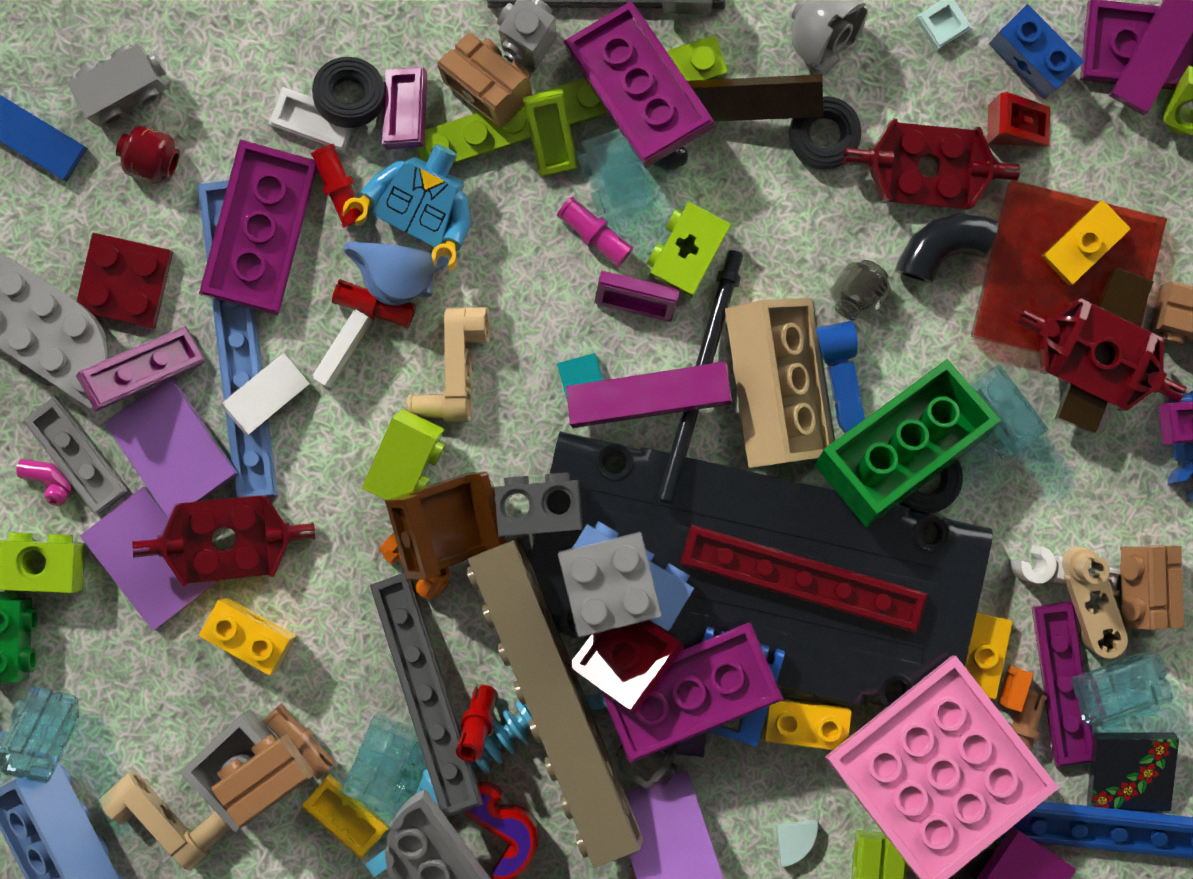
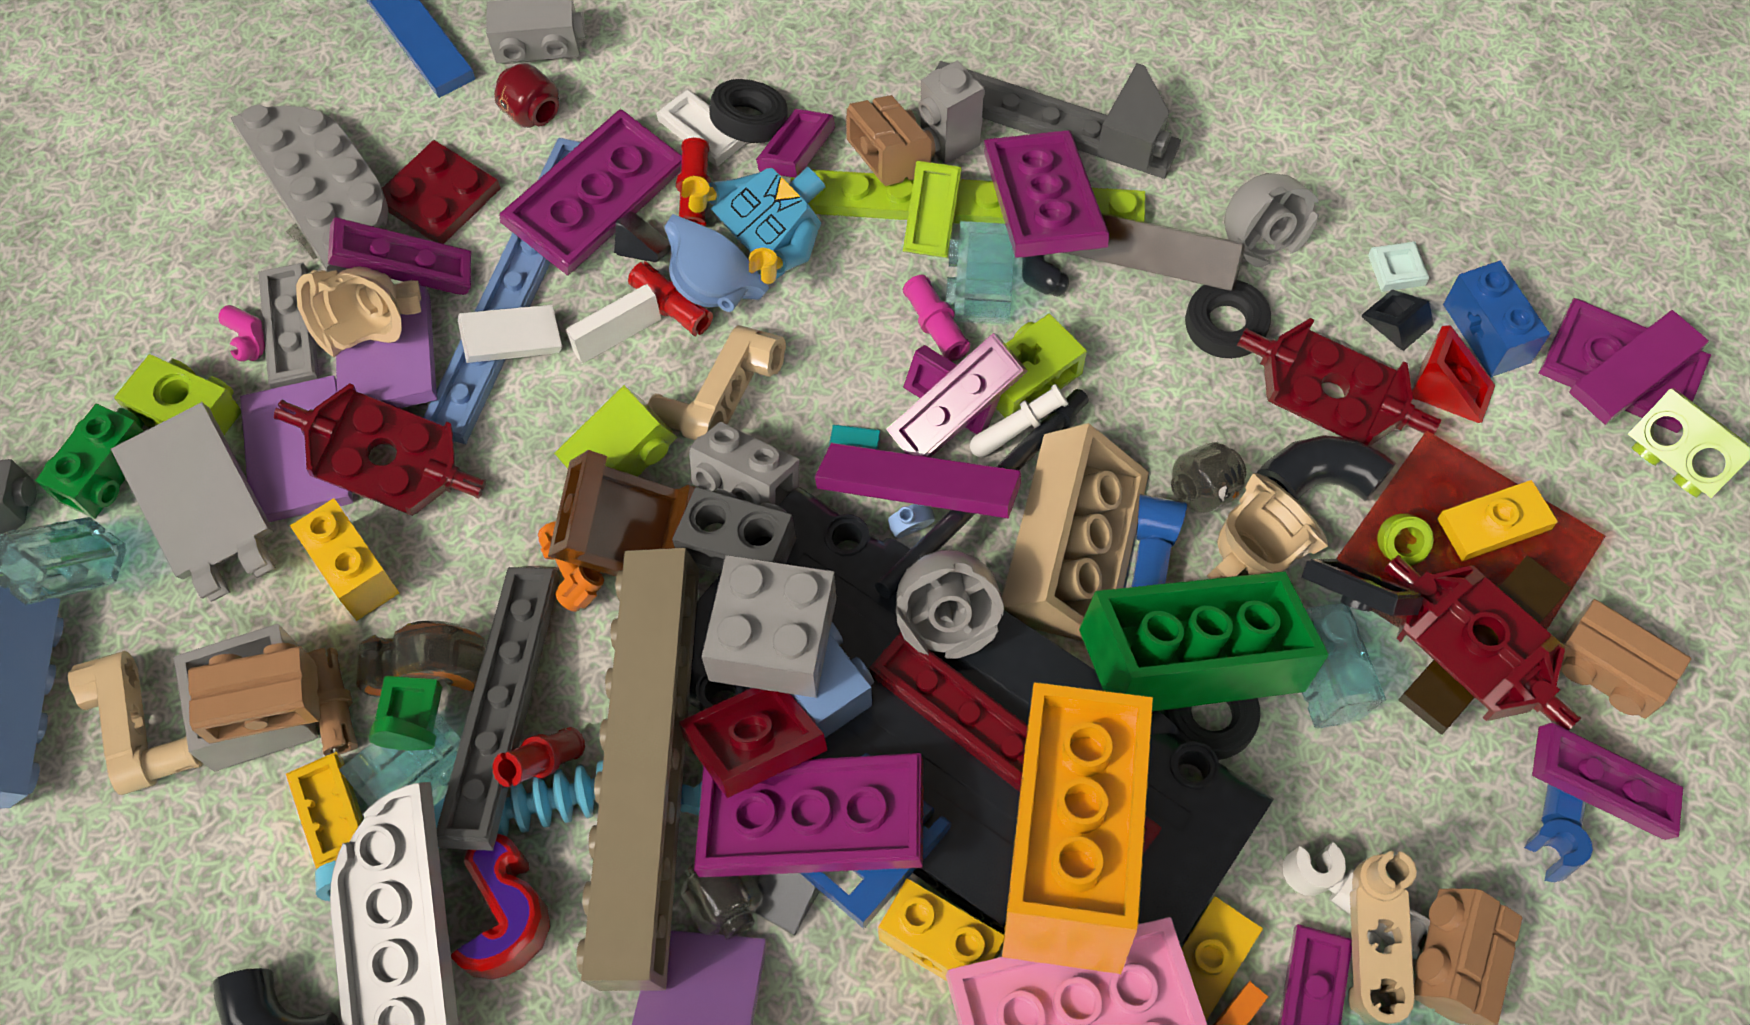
camera: 30 degrees right, 25 degrees down
(108, 640) = (196, 499): none -> light grey tile
(137, 431) = (354, 306): none -> tan helmet
(323, 260) = (639, 239): none -> black slope
(349, 687) = (421, 651): none -> clear smoke animal
(369, 738) = (406, 714): none -> green tile
(511, 440) = (742, 466): none -> light grey brick
(649, 311) = (957, 398): none -> tile
(651, 425) = (910, 520): none -> light blue piece
(706, 296) = (1009, 427): none -> white piece
(719, 497) = (949, 604): none -> light grey cylinder
(884, 645) = (1079, 829): none -> light orange brick
(921, 326) = (1266, 532): none -> tan helmet
(958, 73) = (1400, 318): none -> black slope
(1007, 352) = (1362, 589): none -> black plate
(1015, 278) = (1416, 527): none -> lime piece

